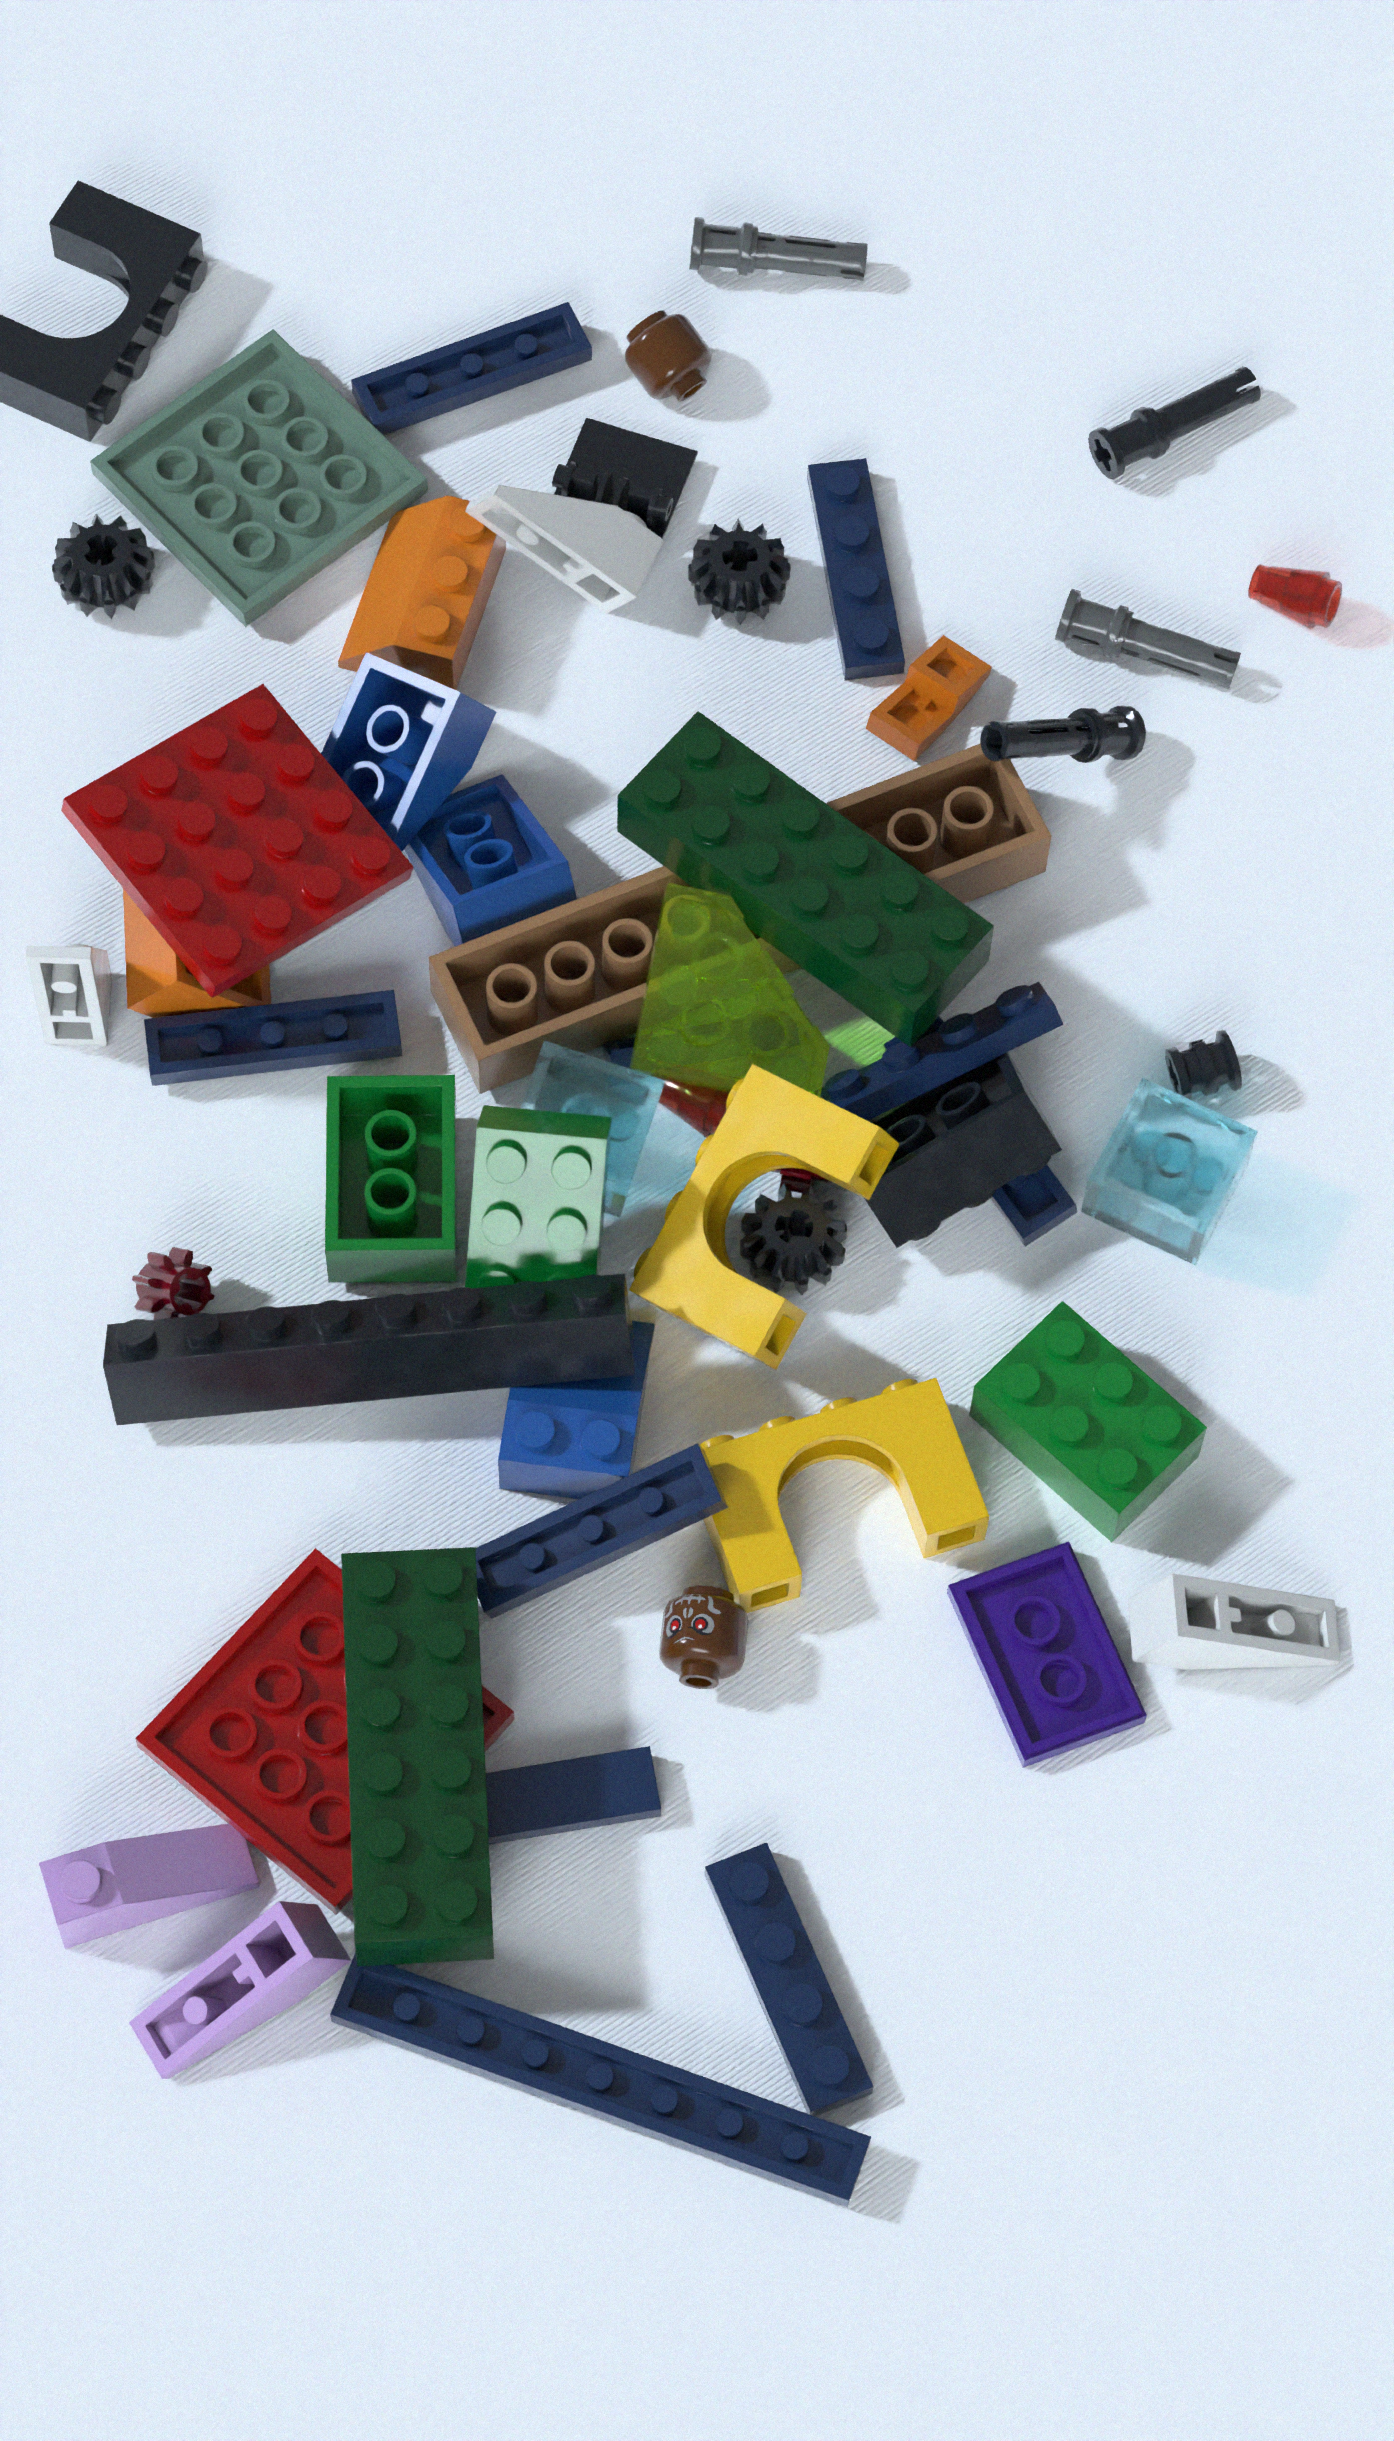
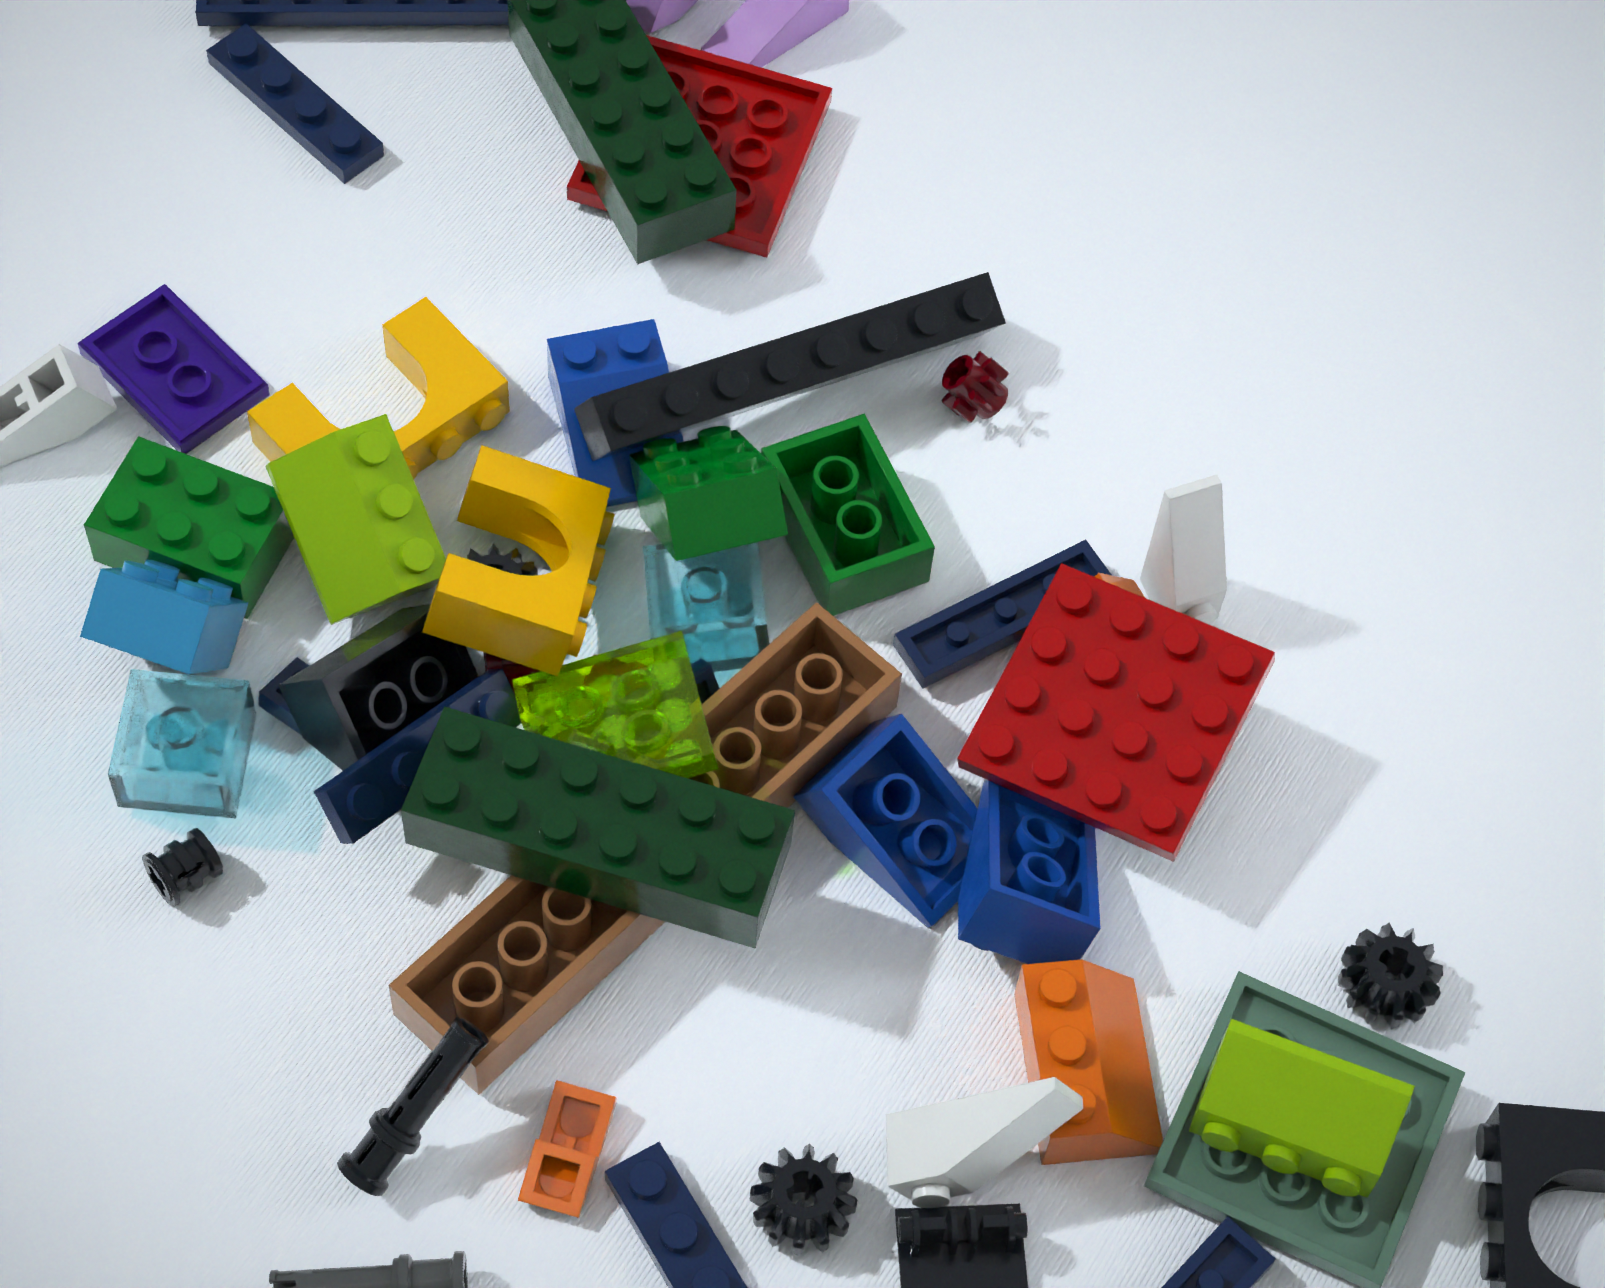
camera: 155 degrees right, 5 degrees down
(275, 447) = (1300, 1109): none -> lime slope
(571, 1795) = (503, 164): dark blue tile -> none
(596, 1530) = (556, 308): dark blue plate -> none
(703, 1636) = (446, 275): reddish brown head -> none
(913, 1330) = (358, 519): none -> lime slope
(1154, 1287) = (165, 617): none -> dark azure brick

